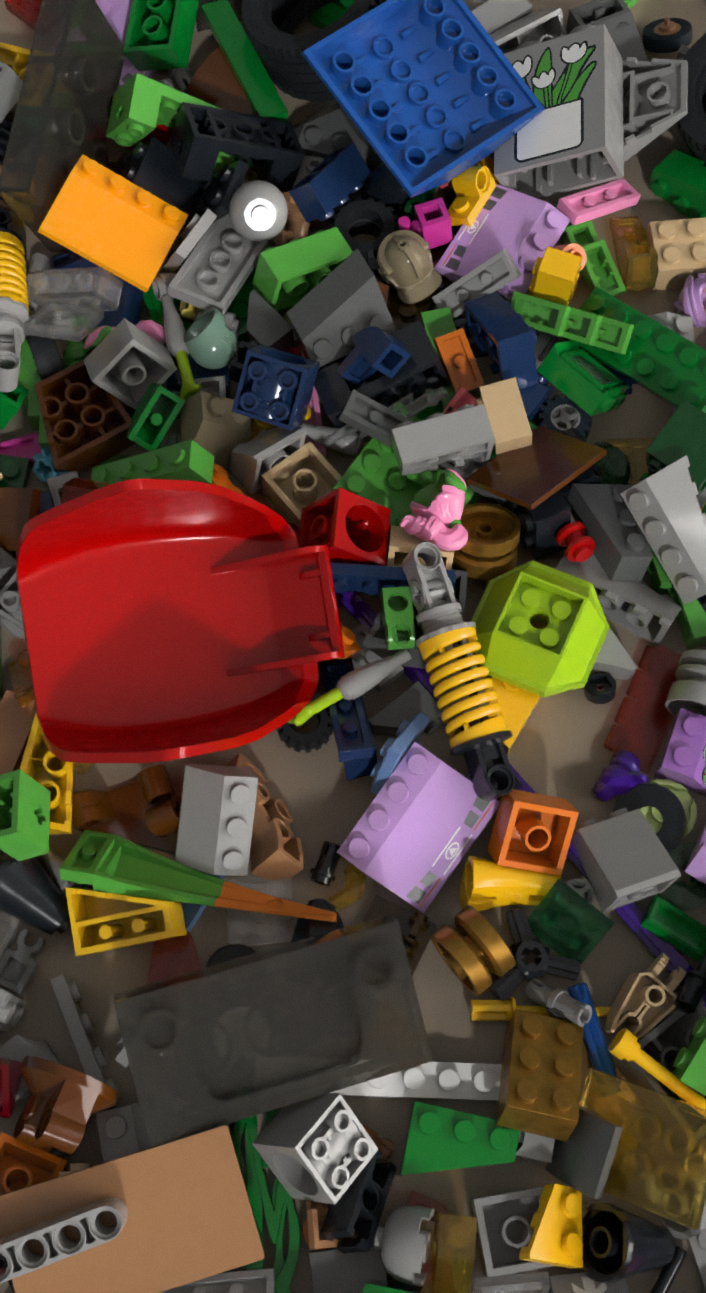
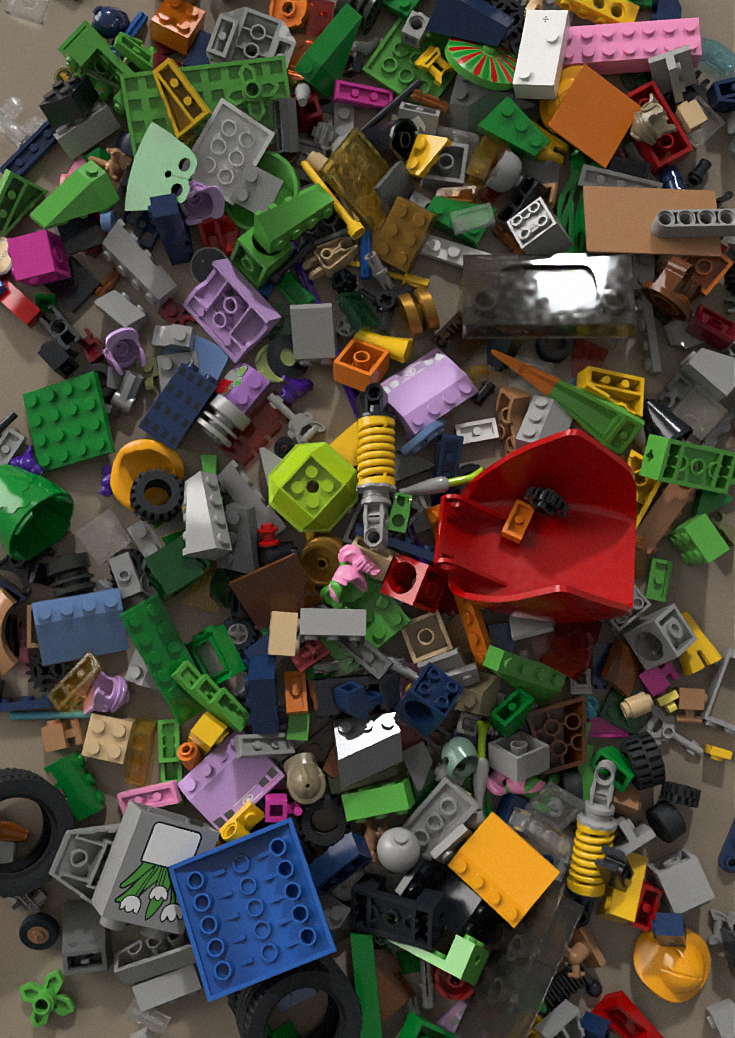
camera: 165 degrees left, 15 degrees up
(182, 702) = (547, 502): none -> black gear
(218, 670) = (517, 521): none -> orange plate
(235, 441) = (464, 675): none -> light grey plate
(319, 799) = (477, 430): none -> white plate
(438, 1132) = (472, 218): none -> clear plate
(462, 1186) = (464, 193): none -> clear orange wing
(595, 729) = (296, 421): none -> light grey piece
(607, 968) = (344, 281): none -> black gear

